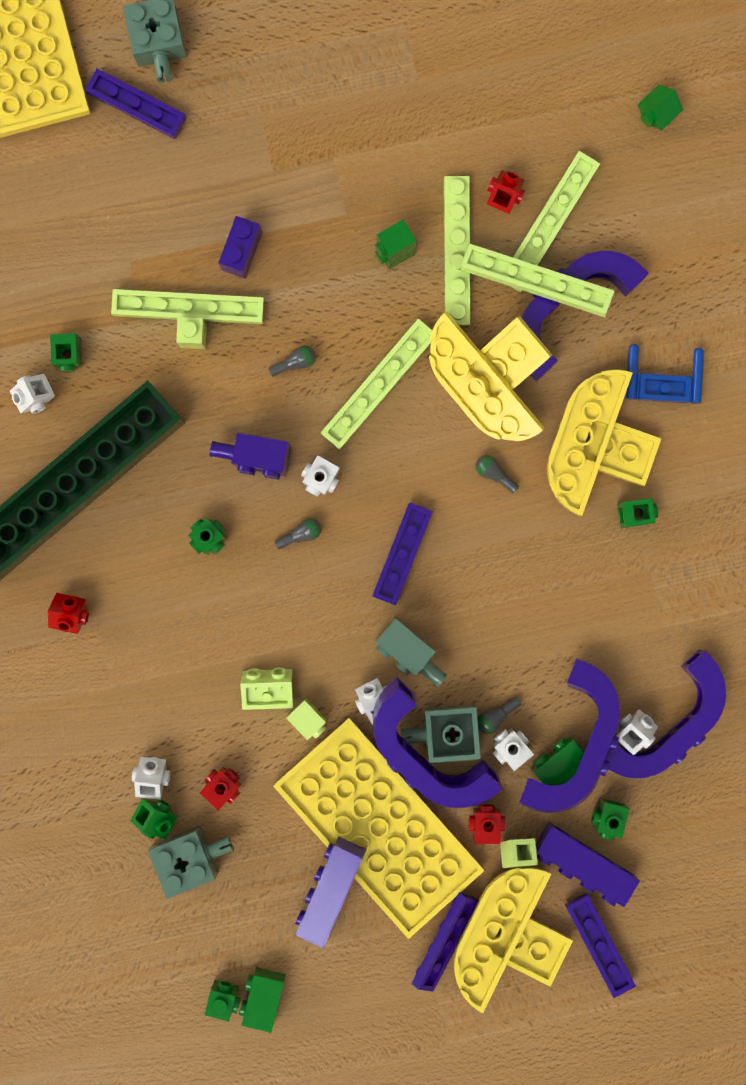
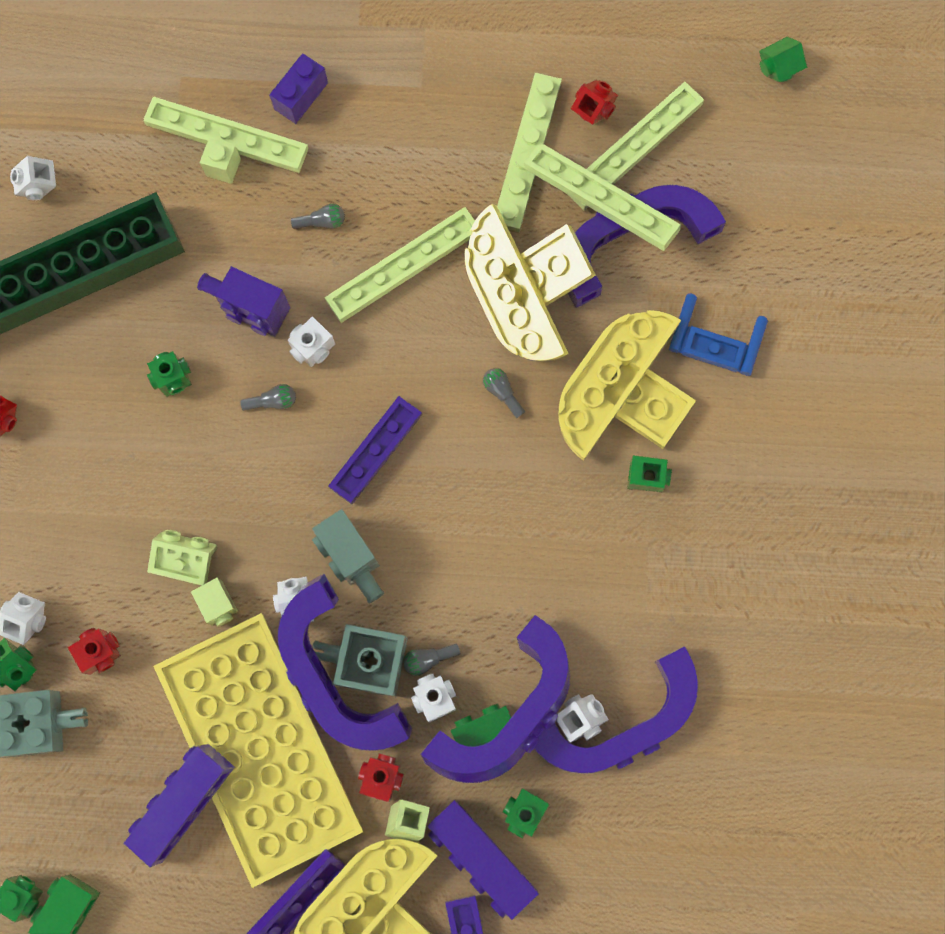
camera: 25 degrees right, 10 degrees down
(60, 345) = (80, 139): green brick -> none
(395, 244) = (460, 124): green brick -> none

